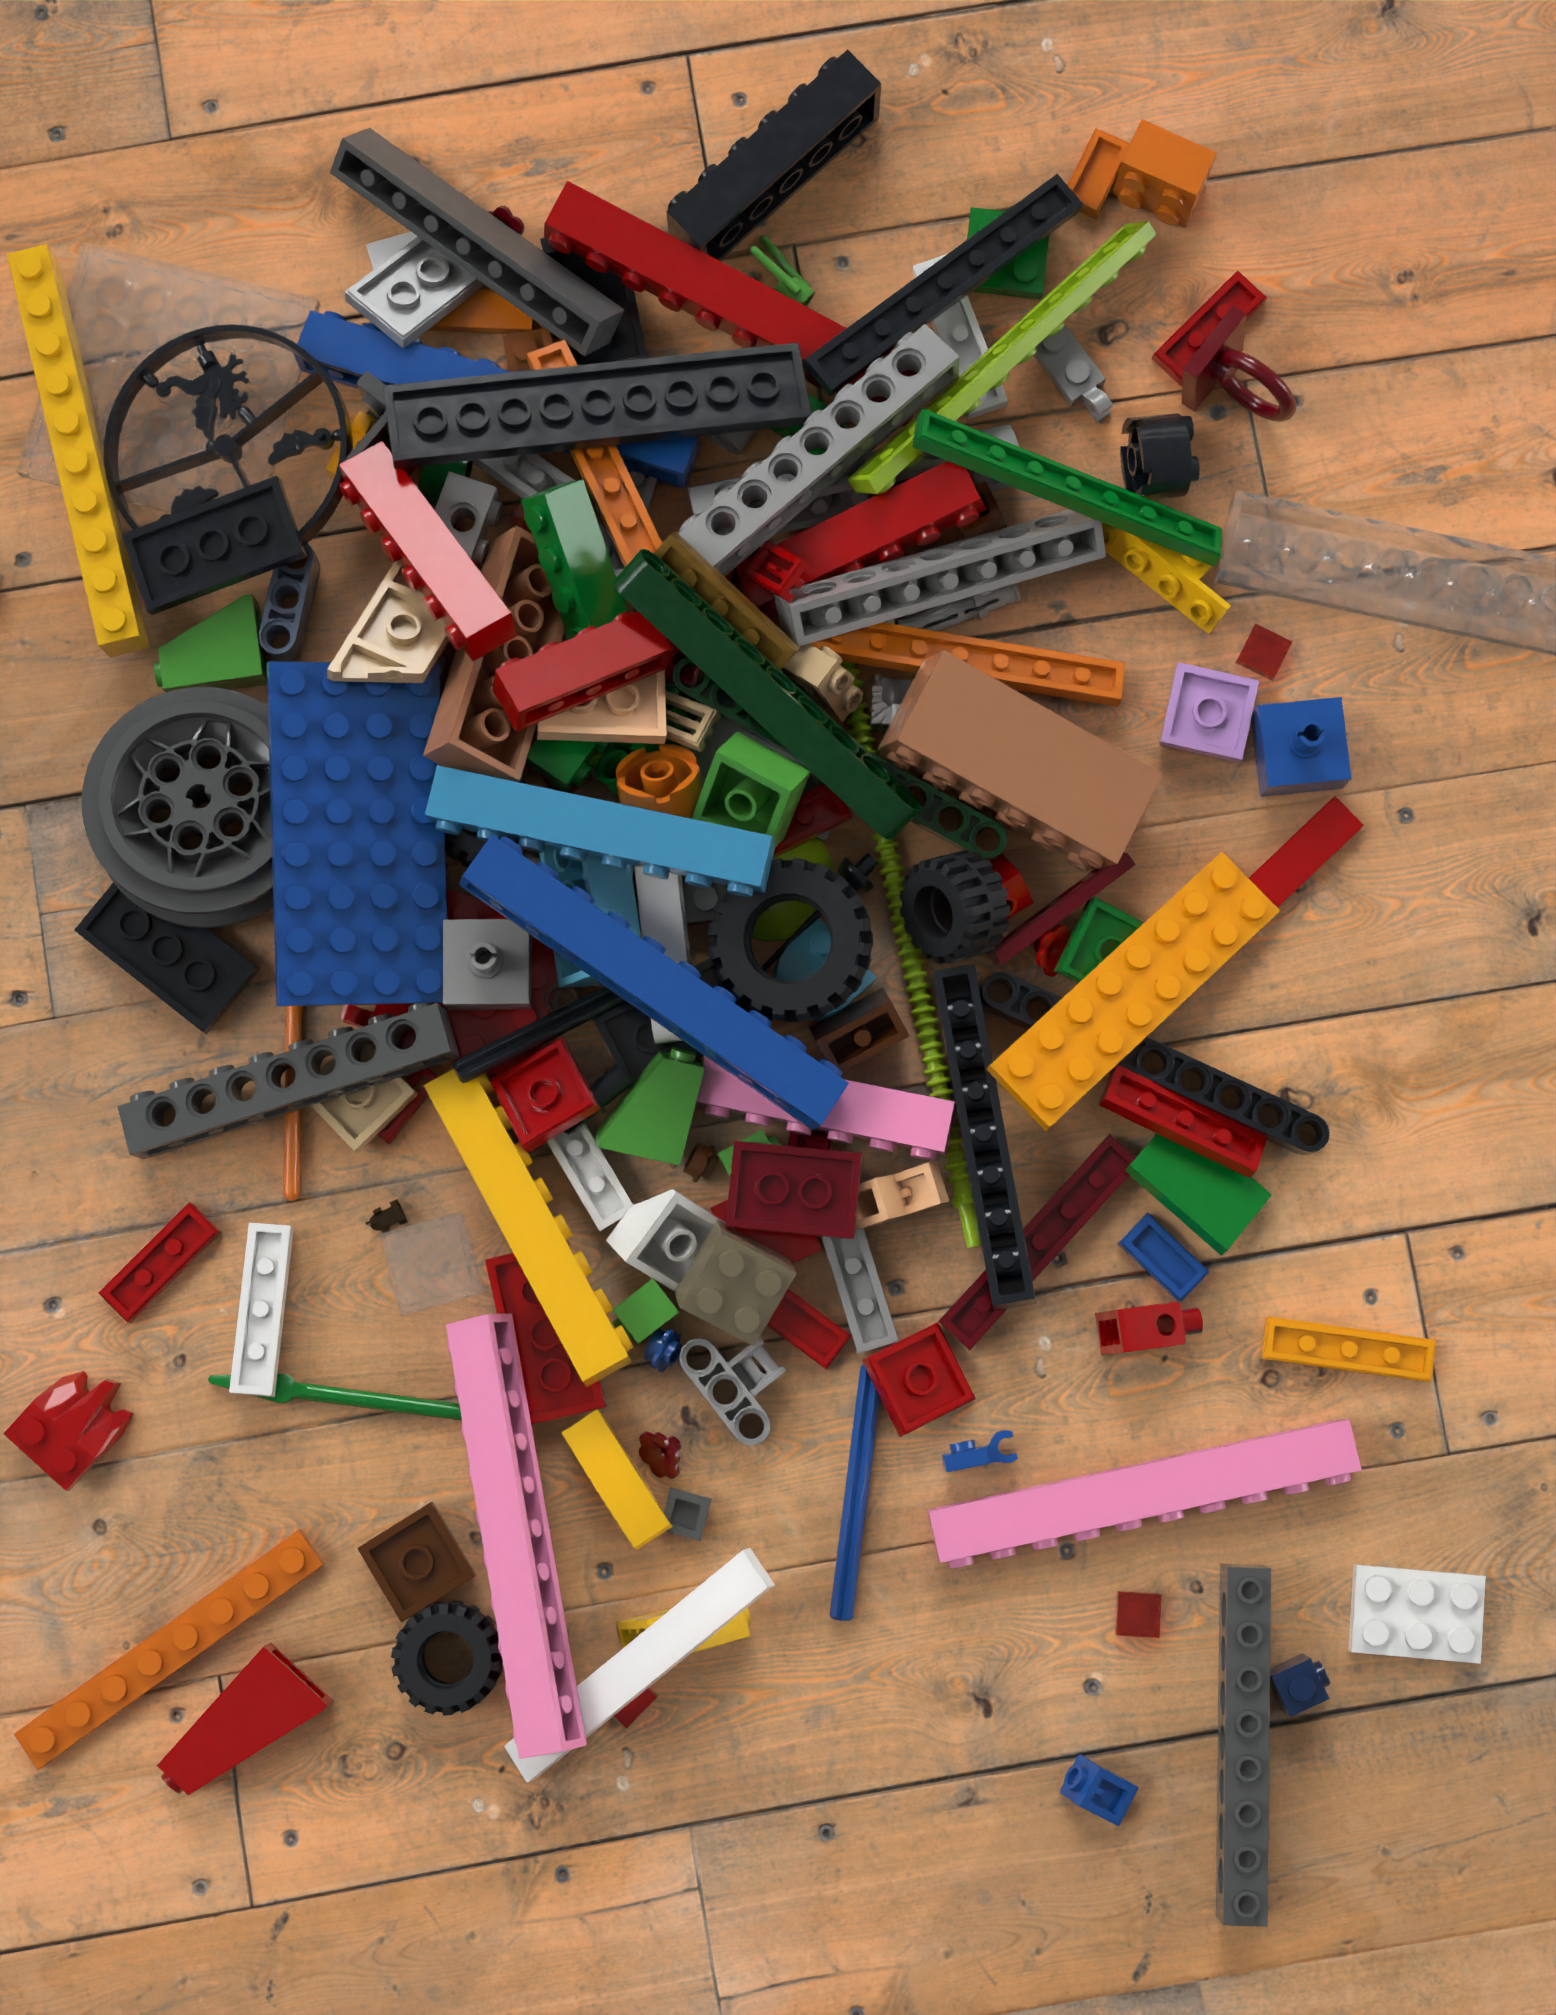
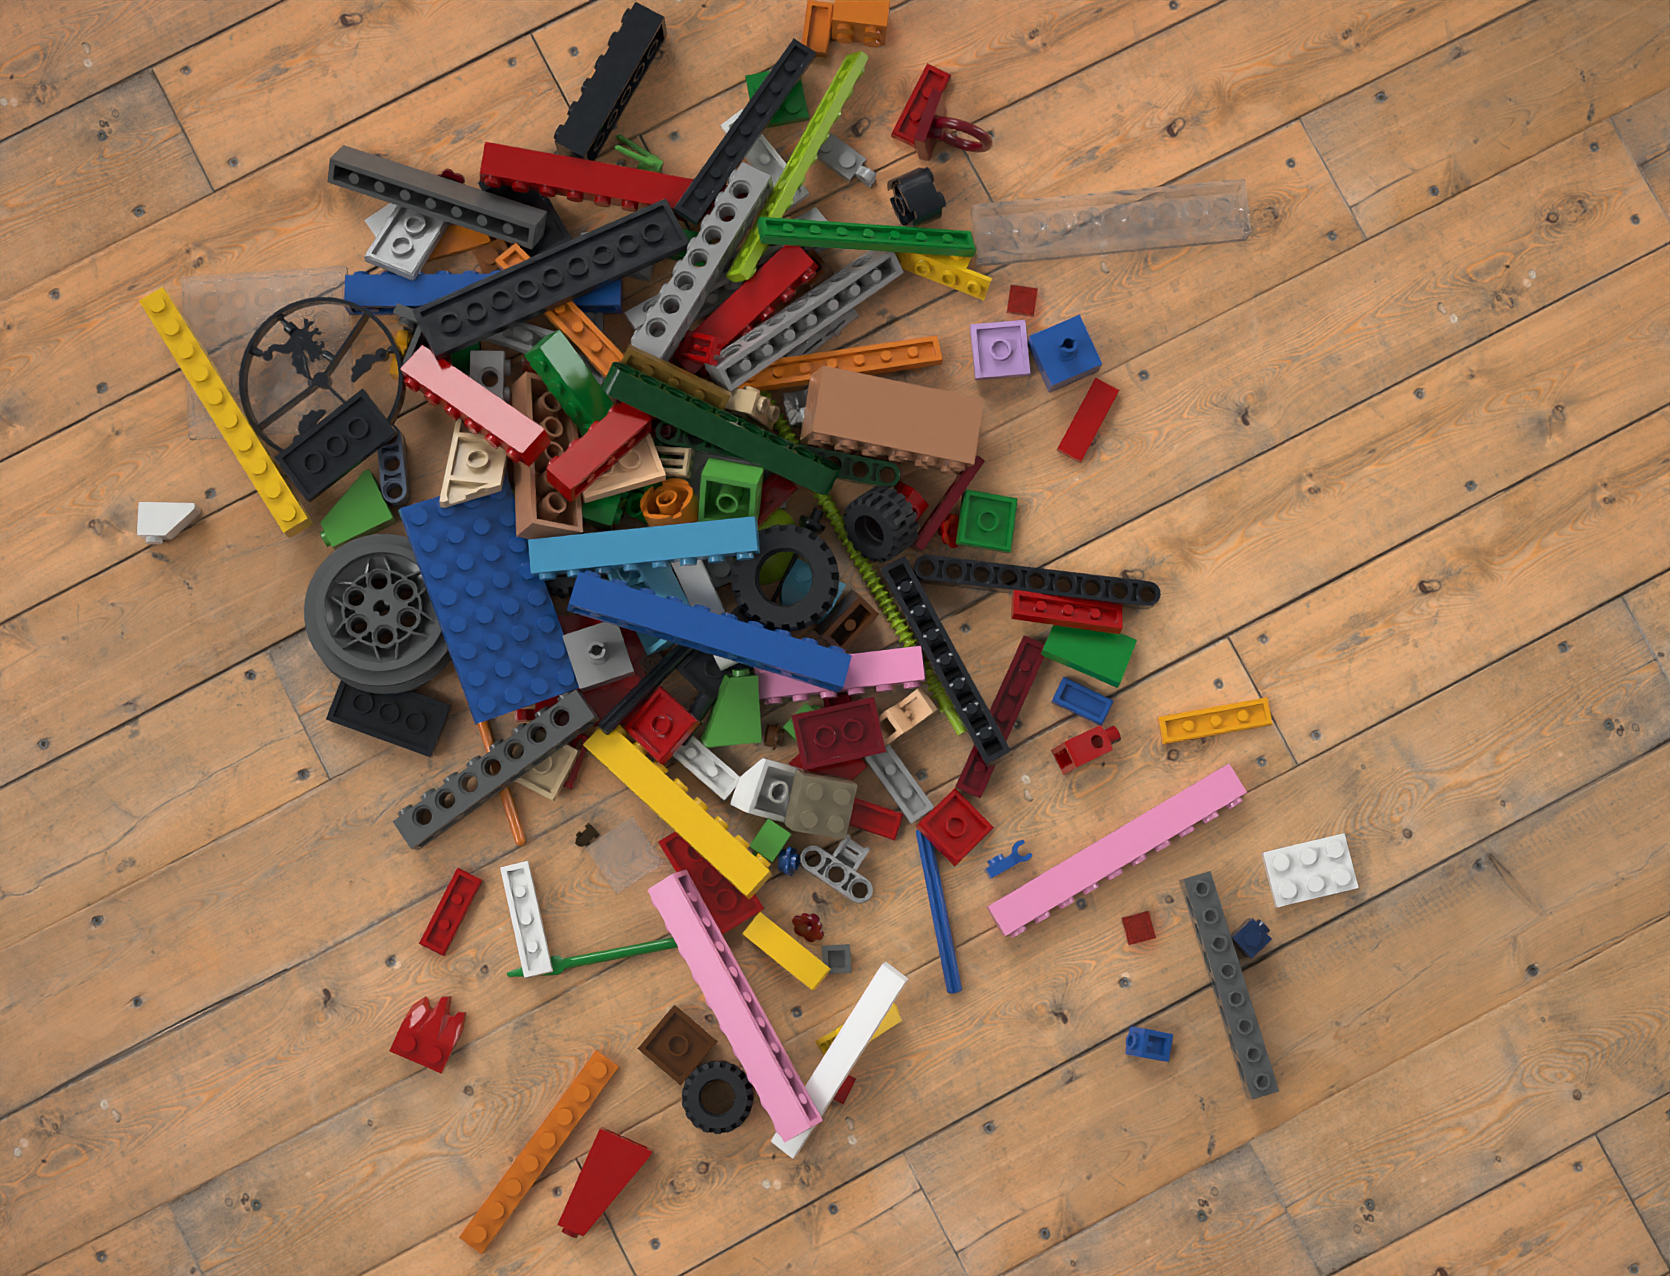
camera: 25 degrees left, 0 degrees up
(1132, 991) = (1009, 540): light orange plate -> none

